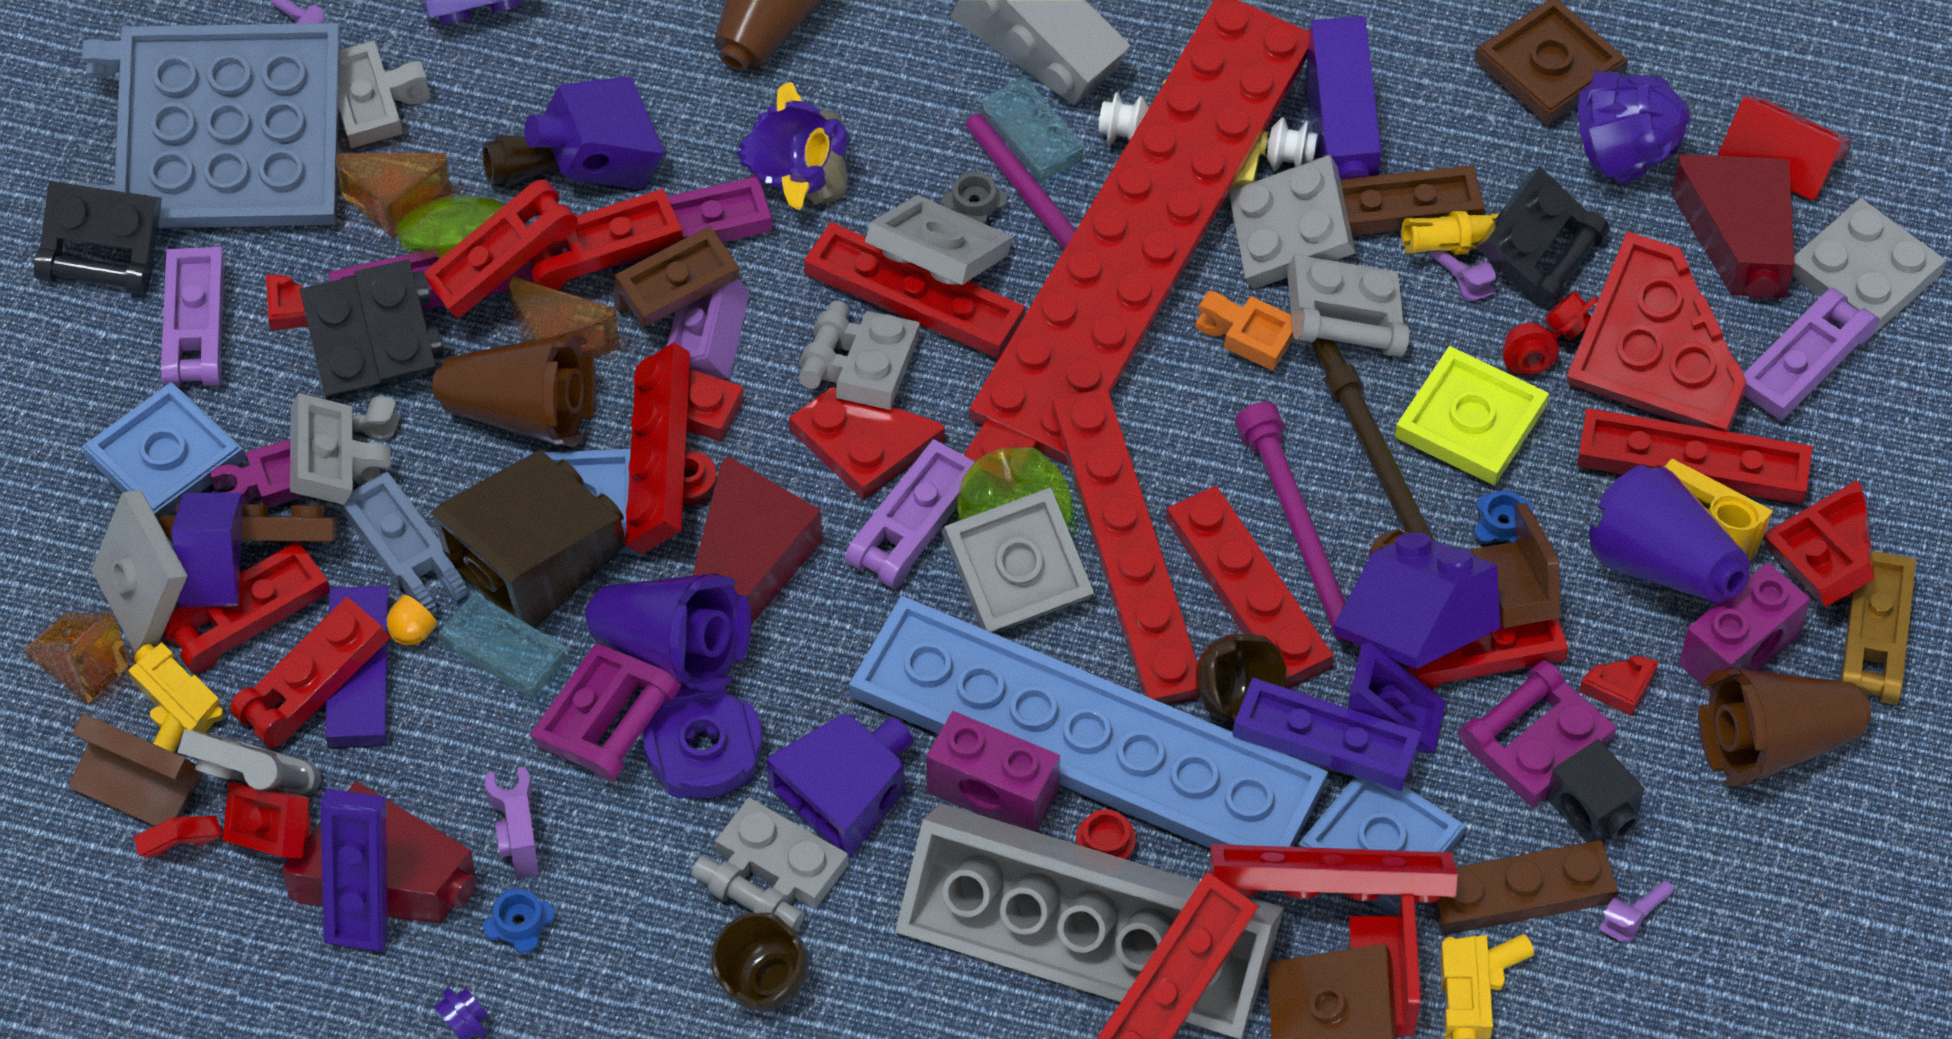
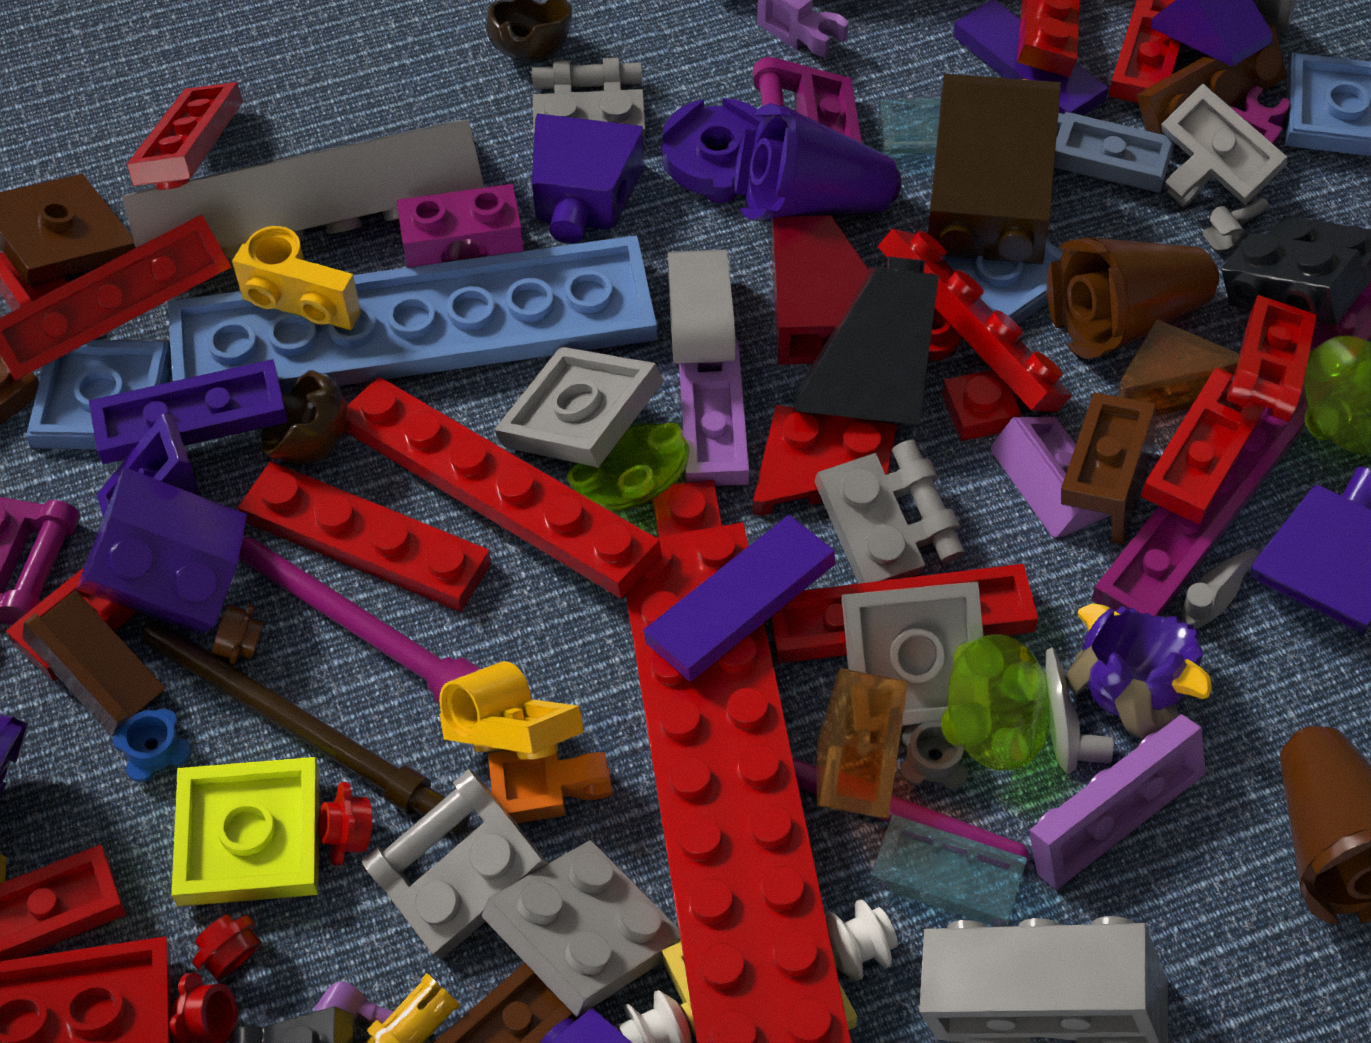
camera: 145 degrees right, 0 degrees up
(710, 175) = (1216, 589): none -> light grey bar
(773, 440) = (877, 350): none -> black slope
(859, 576) = (701, 307): none -> light grey beam
(876, 161) = (1064, 723): none -> light grey bar
(893, 96) = (1118, 801): none -> medium lavender plate
(913, 177) = (997, 703): none -> clear neon green dish
(1029, 328) = (739, 597): none -> dark purple tile
(1035, 203) = (860, 743): none -> clear orange slope
(1107, 833) = (339, 251): red plate -> none
(1172, 778) = (277, 277): none -> yellow plate
(1250, 351) = (497, 713): none -> yellow plate
(1401, 376) = (345, 824): none -> red plate

